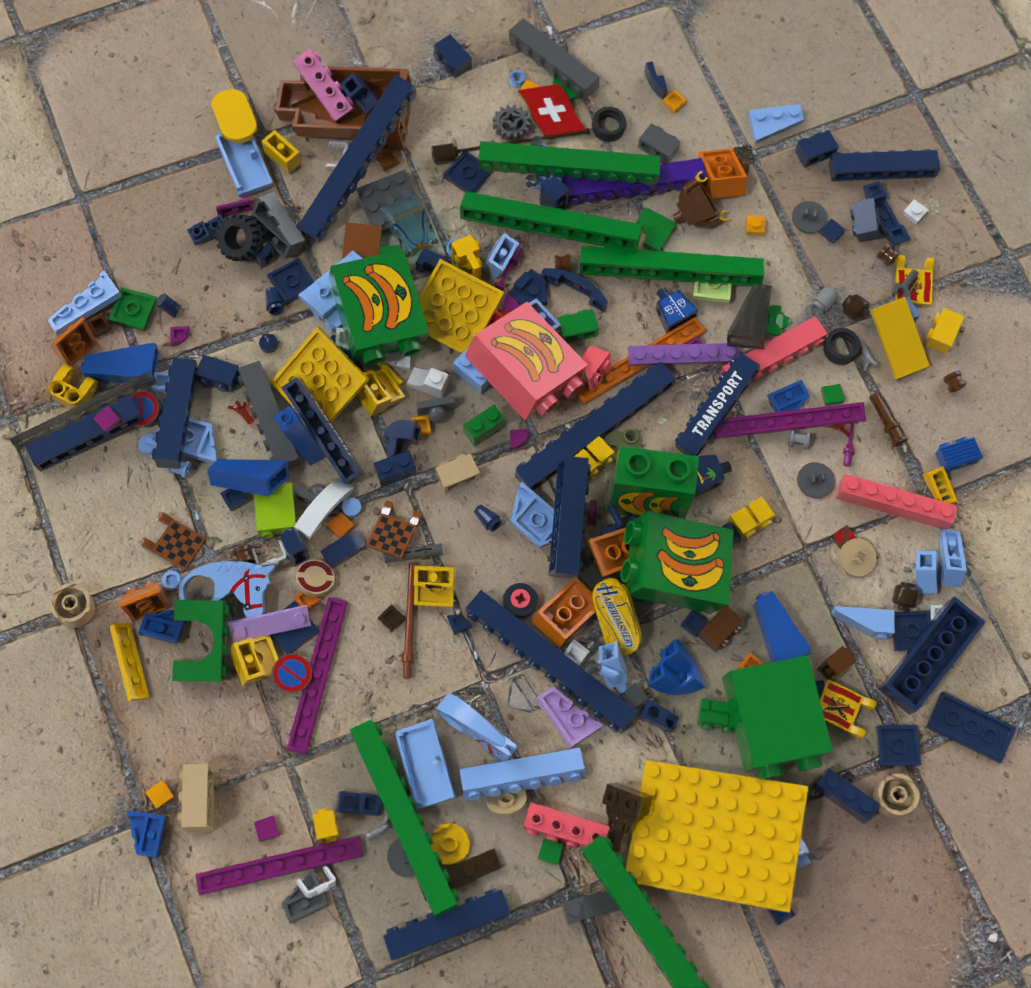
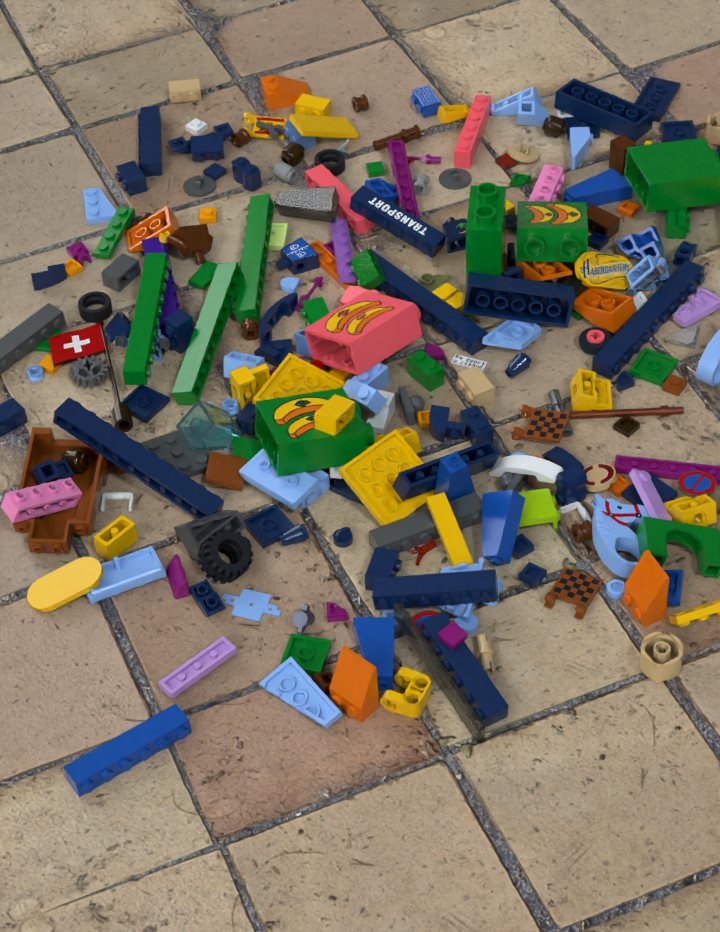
camera: 85 degrees left, 25 degrees down
(48, 172) = (127, 750): none -> blue brick
(106, 456) = (485, 654): none -> tan pin
(129, 223) = (197, 667): none -> lavender plate
(196, 505) = (532, 574): none -> dark blue plate
(208, 264) = (247, 597): none -> light blue piece
(247, 431) = (448, 529): none -> yellow tile
(369, 316) = (334, 415): none -> yellow brick
(431, 357) = (365, 395): none -> light blue slope
(448, 675) = (674, 385): none -> dark orange plate
(478, 657) = (653, 367): none -> green tile
(504, 473) = (468, 362): none -> white sticker
(570, 140) = (118, 326): none -> dark blue slope
(609, 317) = (319, 283): none -> magenta piece
(632, 371) = (367, 270): none -> green brick
(635, 303) = (289, 284): none -> light blue tile
(698, 106) = (79, 252): none -> magenta plate
(724, 136) = (114, 233): none -> green plate
(779, 574) = (548, 184): none -> bright pink brick
(808, 549) = (520, 180): none -> green tile
(819, 259) = (246, 174): none -> dark blue brick
(978, 197) = (184, 90): none -> tan brick
(978, 302) = (281, 91): none -> orange slope

